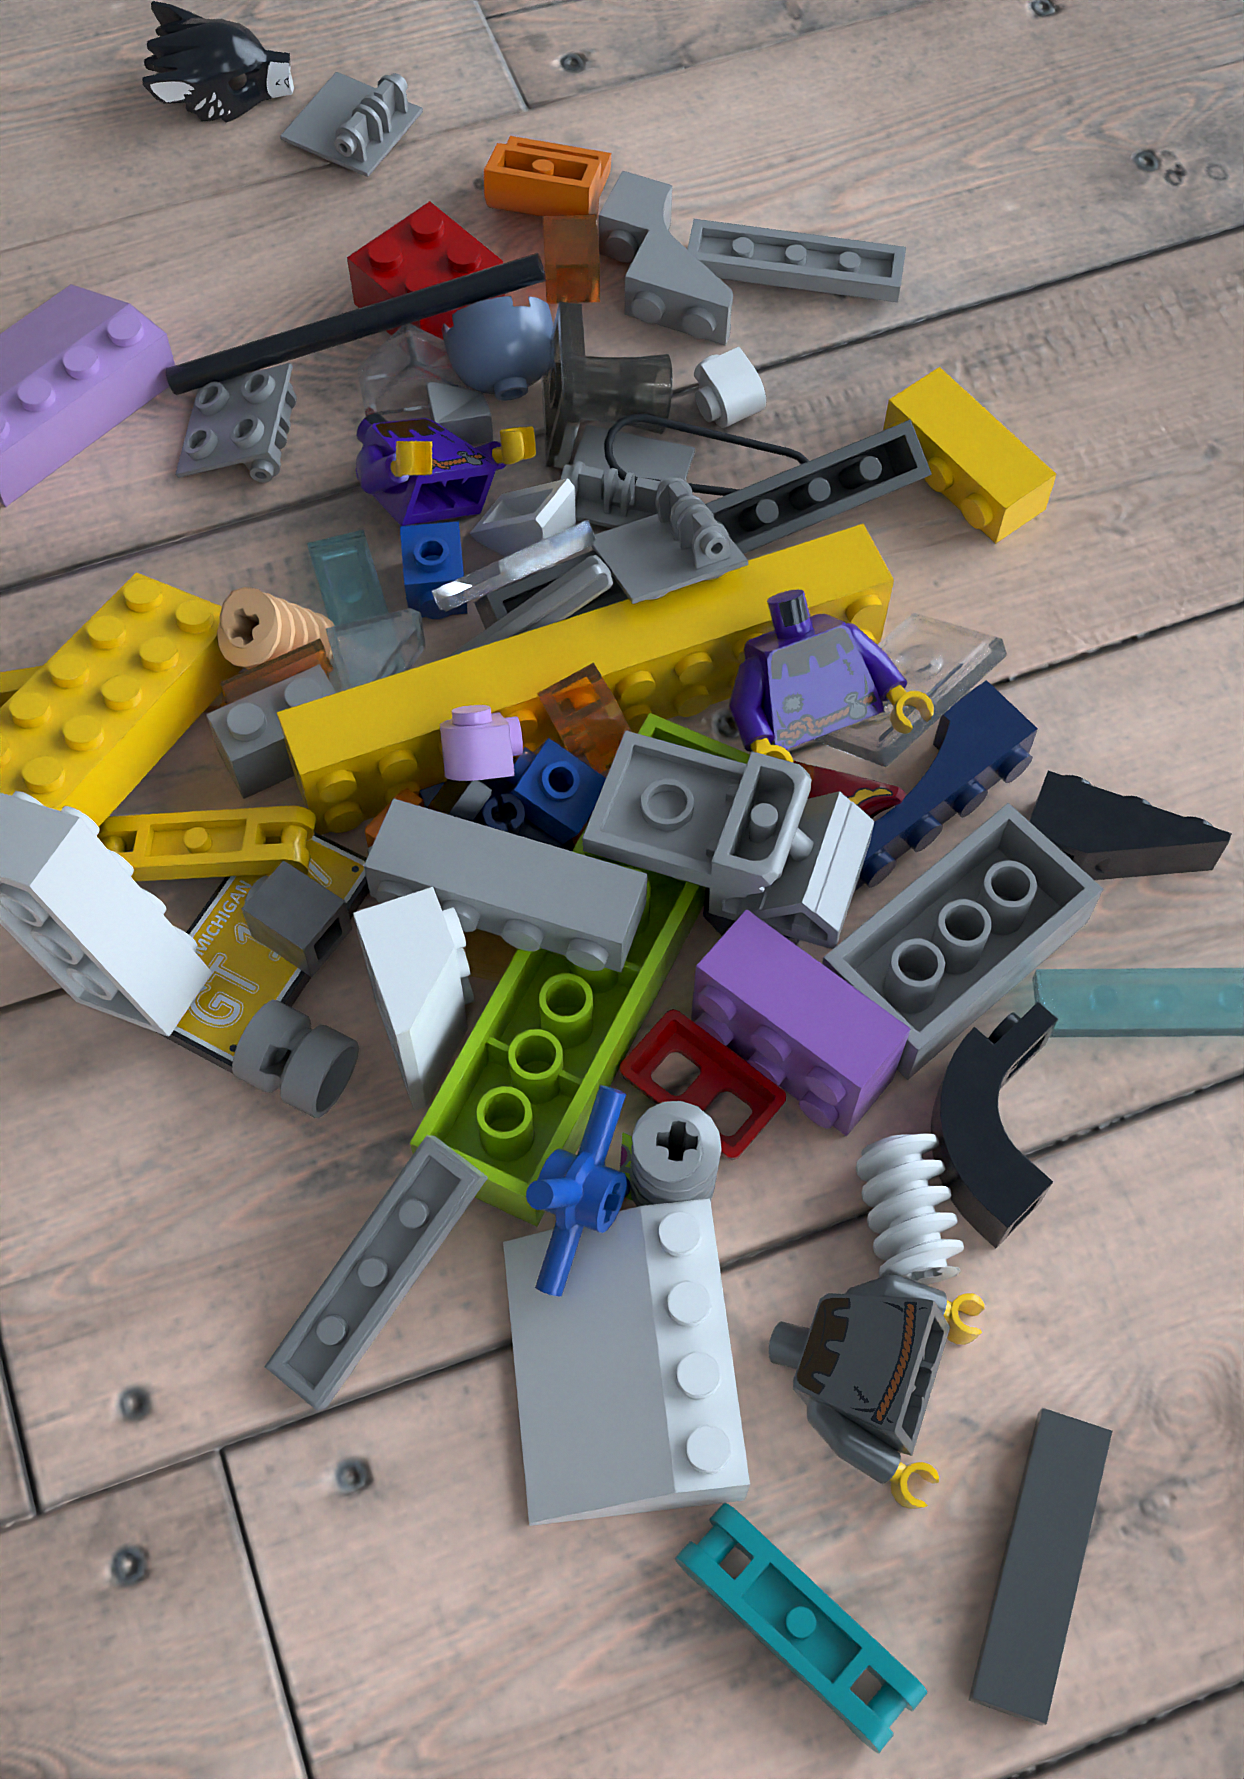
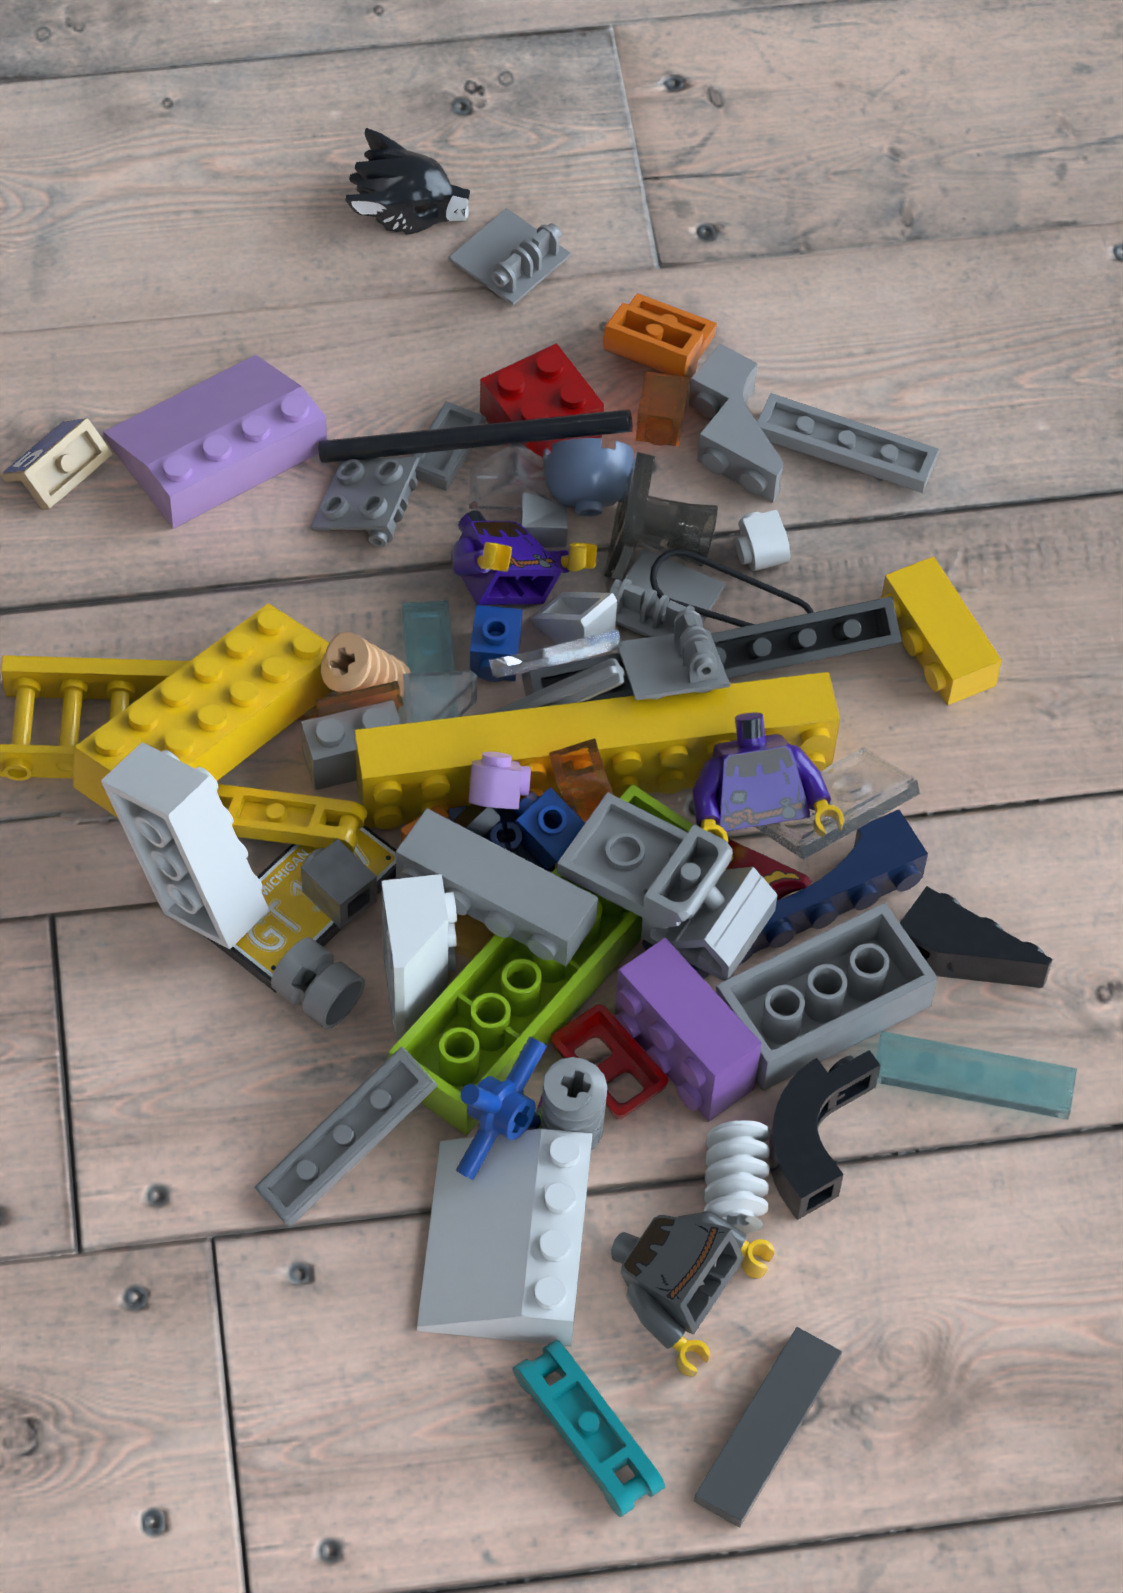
camera: 10 degrees right, 5 degrees down
(322, 372) = (442, 466): none -> light grey tile

